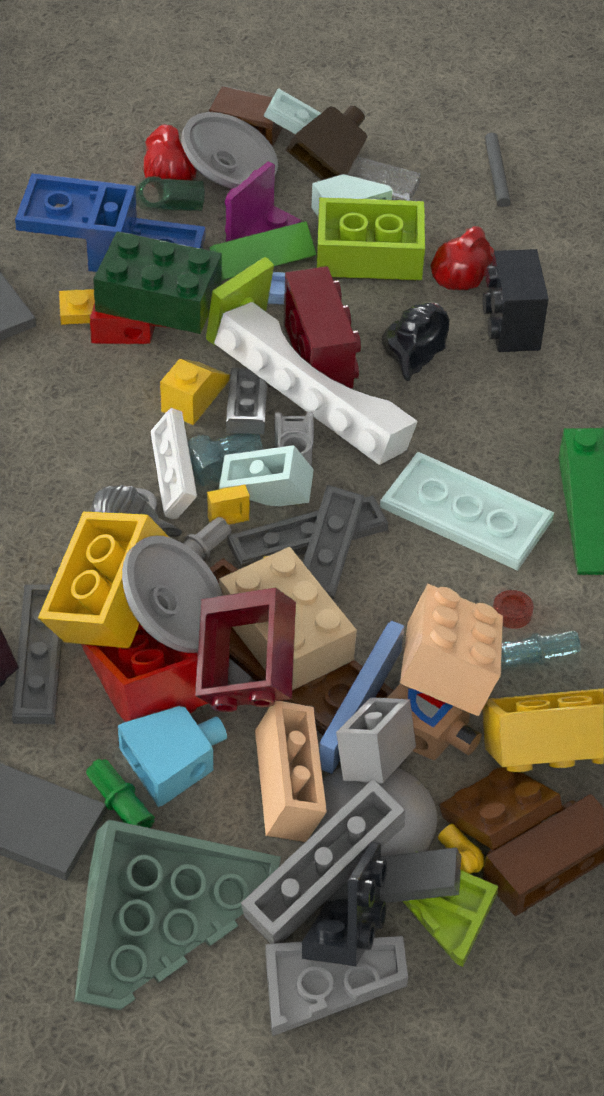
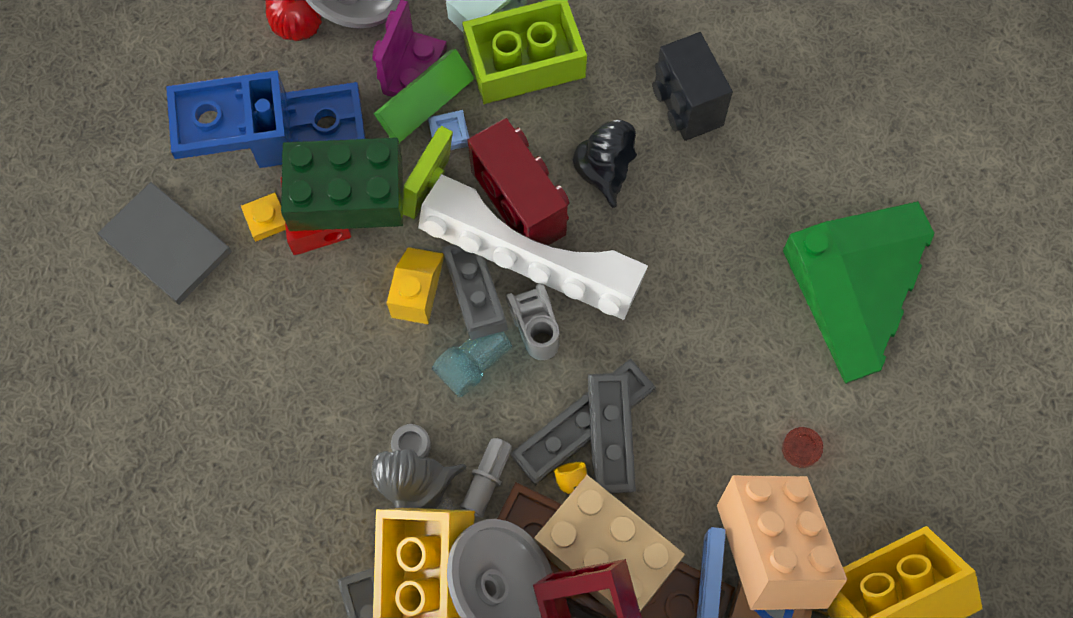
camera: 15 degrees left, 20 degrees up
(173, 194) = (310, 51): clear green piece -> none
(173, 464) = (429, 387): white tile -> none
(230, 504) = (500, 419): yellow plate -> none
(271, 475) = (526, 377): light aqua slope -> none
(462, 260) = (618, 46): red hair -> none
(467, 510) = (722, 344): light aqua tile -> none
(539, 648) = (846, 486): clear light blue axle -> none

